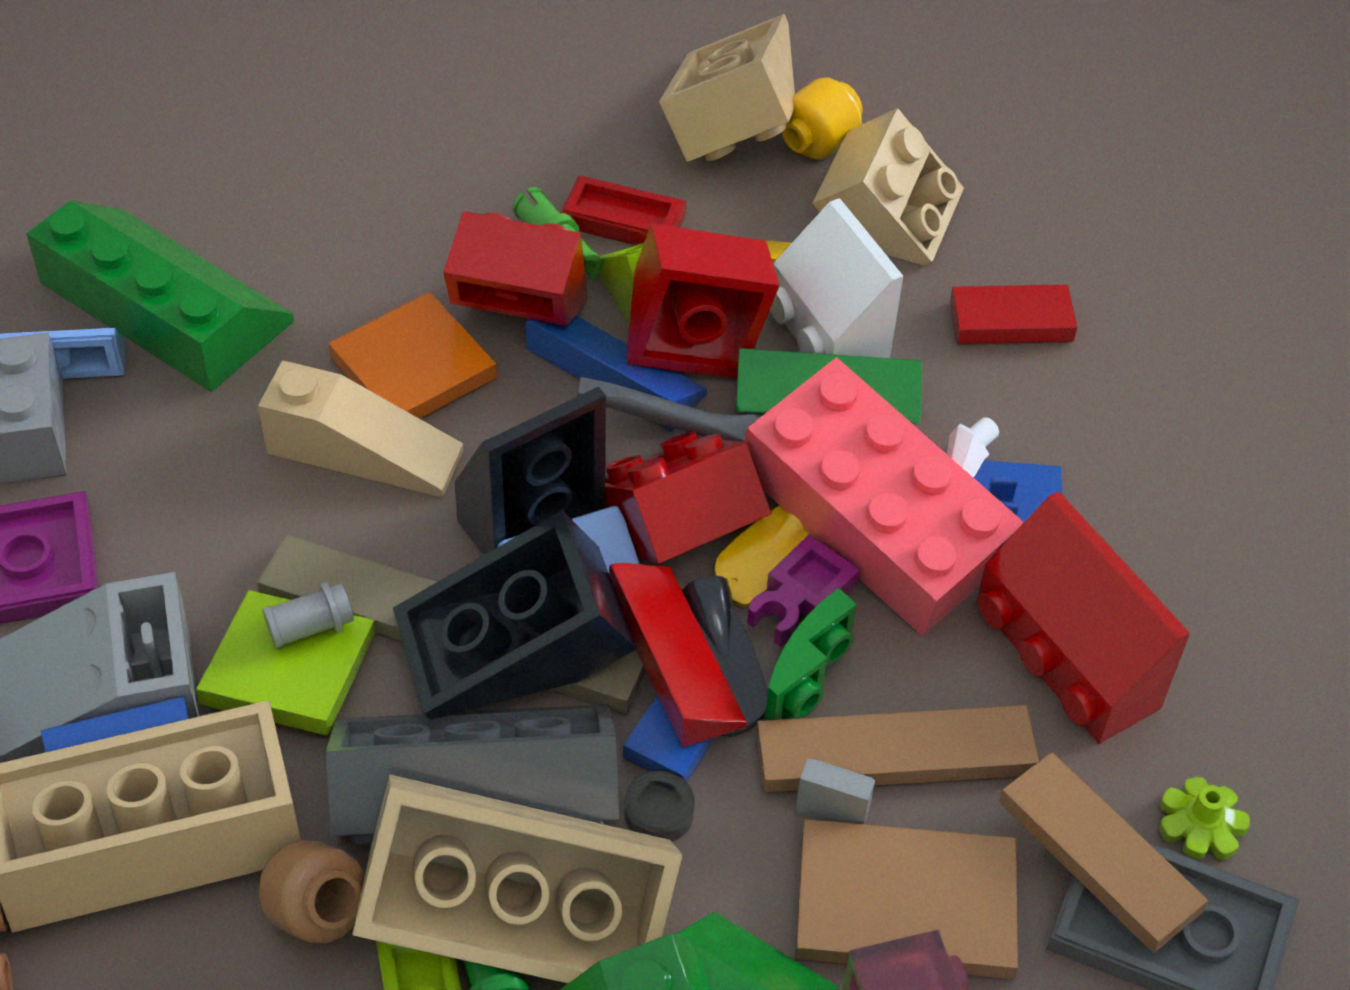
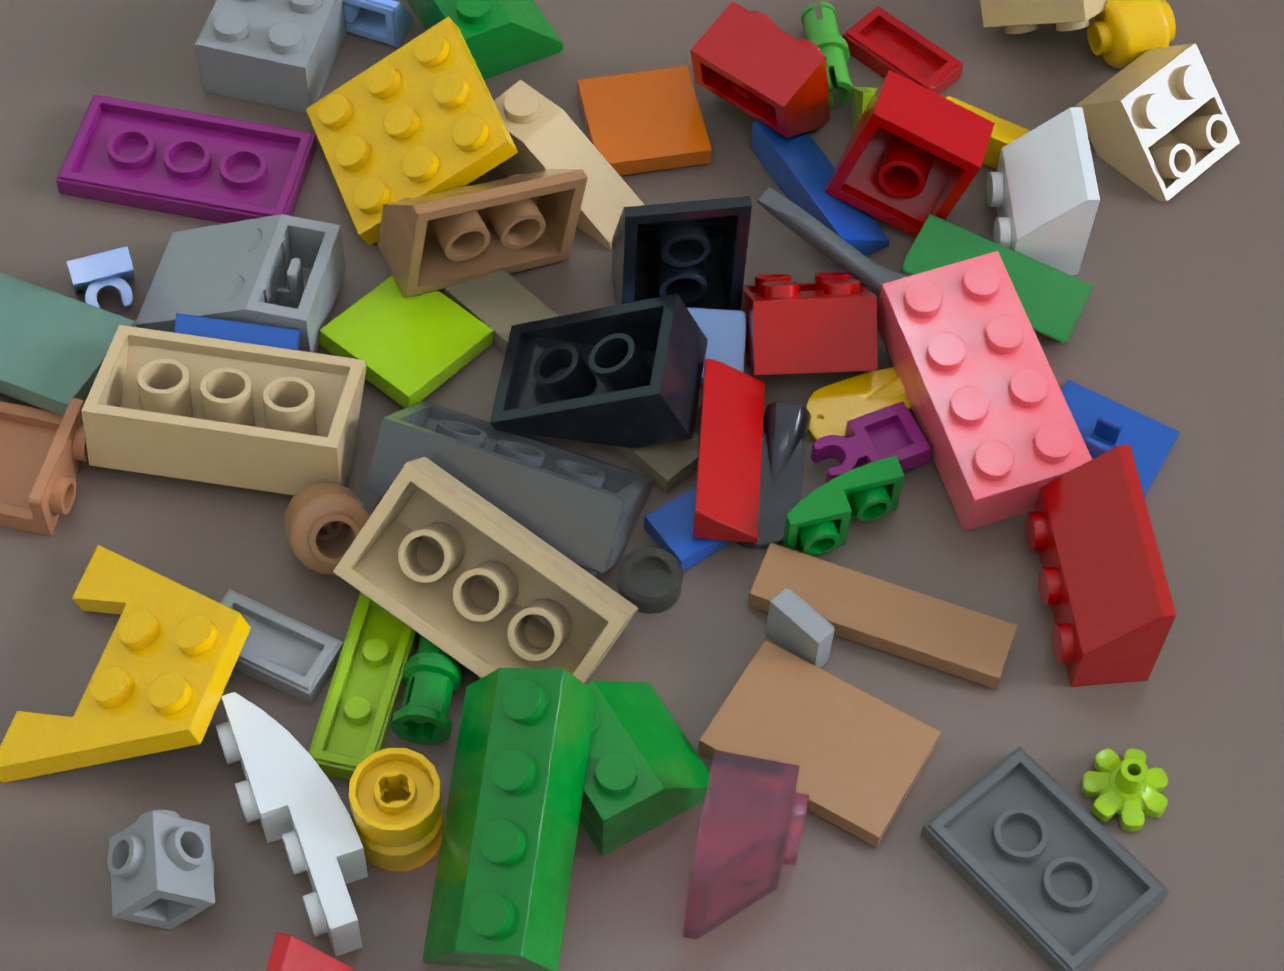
camera: 25 degrees right, 5 degrees up
(190, 452) = (410, 127): none -> yellow plate
(309, 615) = (436, 304): light grey pin -> none
(315, 521) = (481, 229): none -> medium nougat slope
(968, 445) = (1095, 383): white bar -> none
(1013, 314) = (1216, 276): red tile -> none
(1103, 852) = (1008, 774): medium nougat tile -> none

